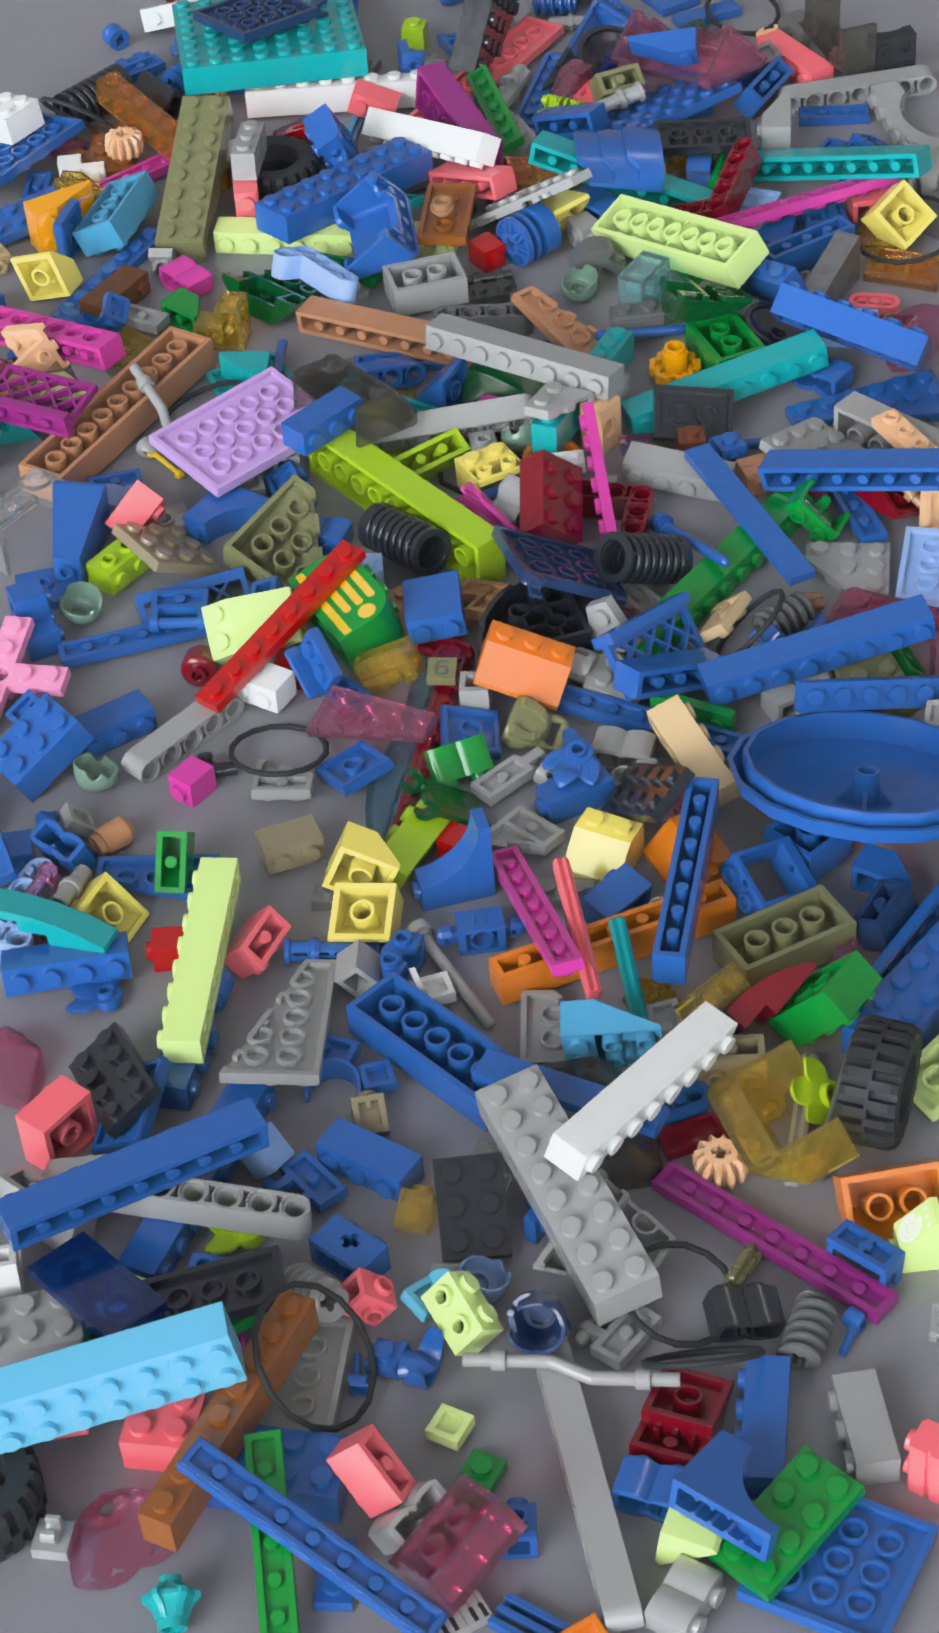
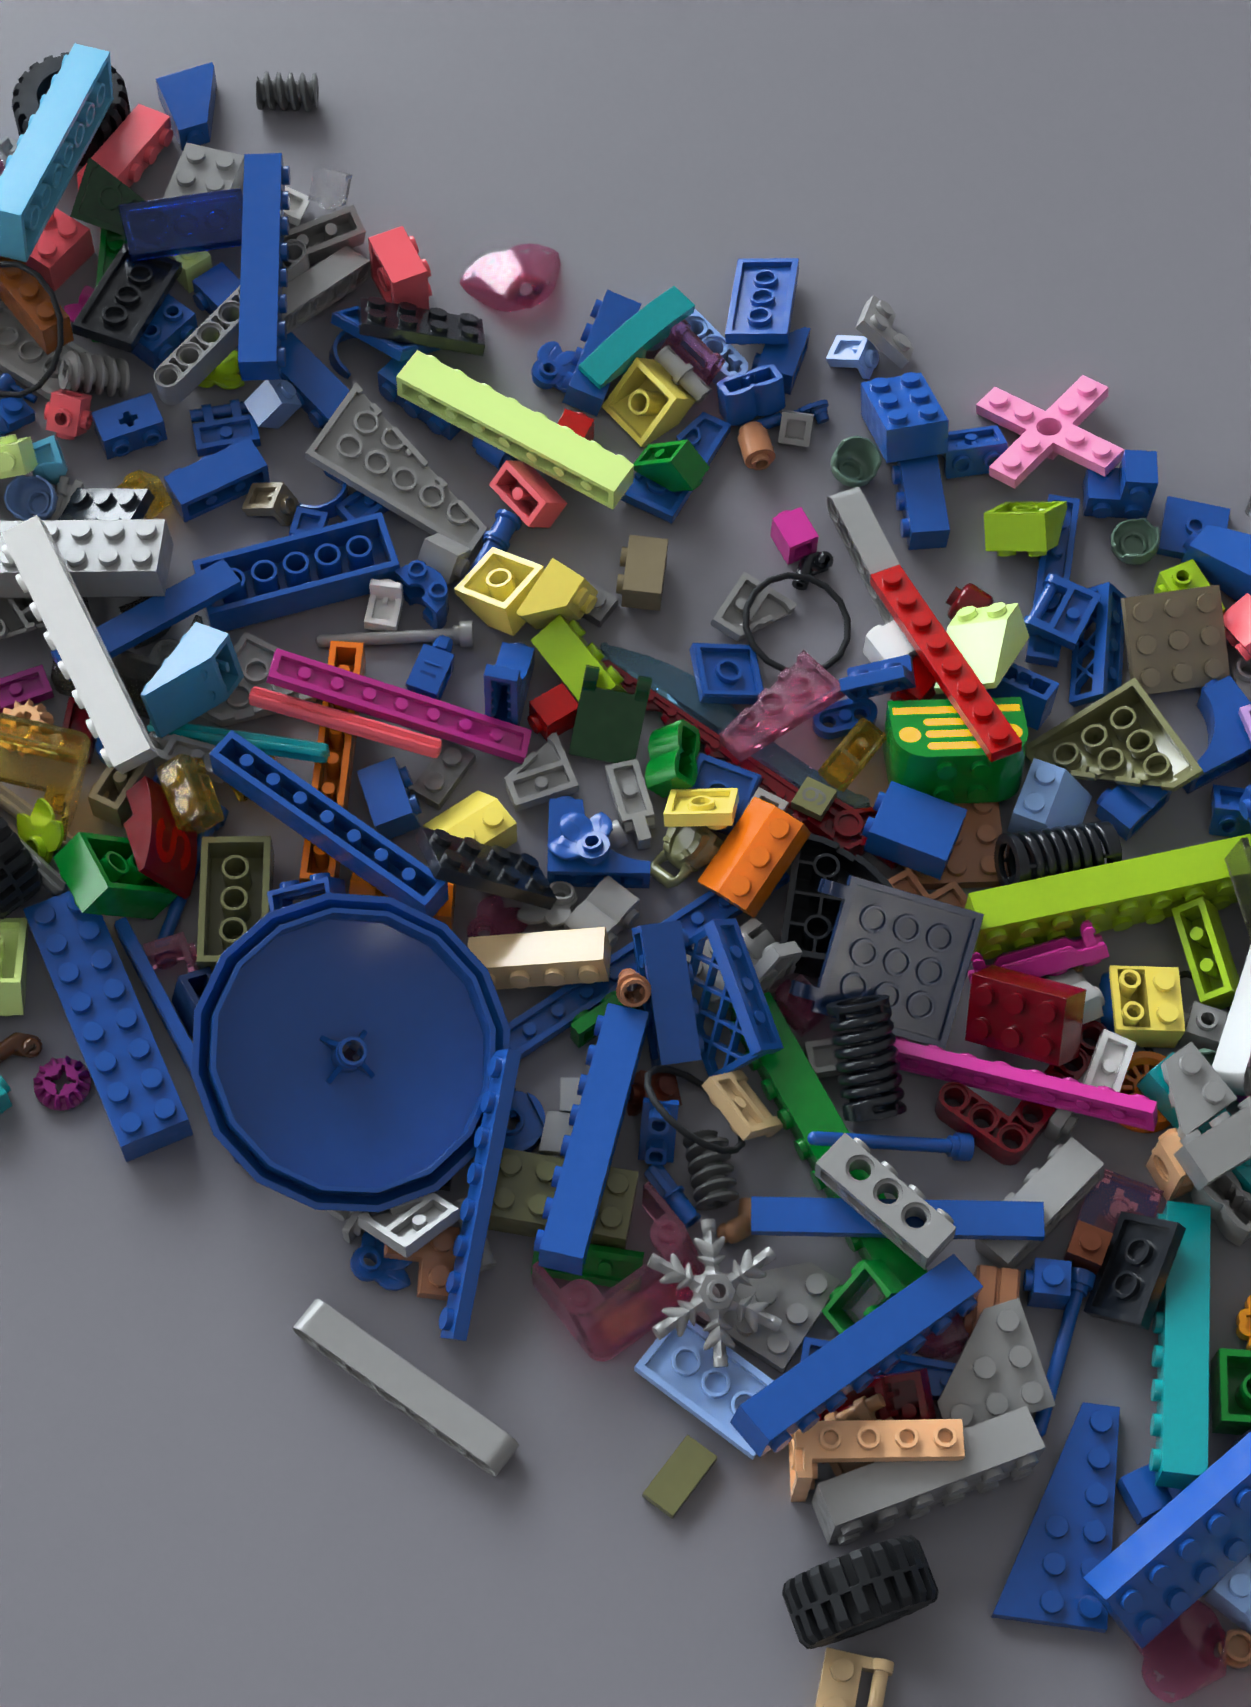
camera: 110 degrees right, 20 degrees up
(105, 655) = (1024, 527): none -> lime slope
(499, 711) = (701, 807): none -> light yellow plate
(684, 678) = (632, 988): none -> nougat cone
(746, 506) = (920, 1243): none -> light grey brick
(874, 569) = (703, 1298): none -> light grey piece

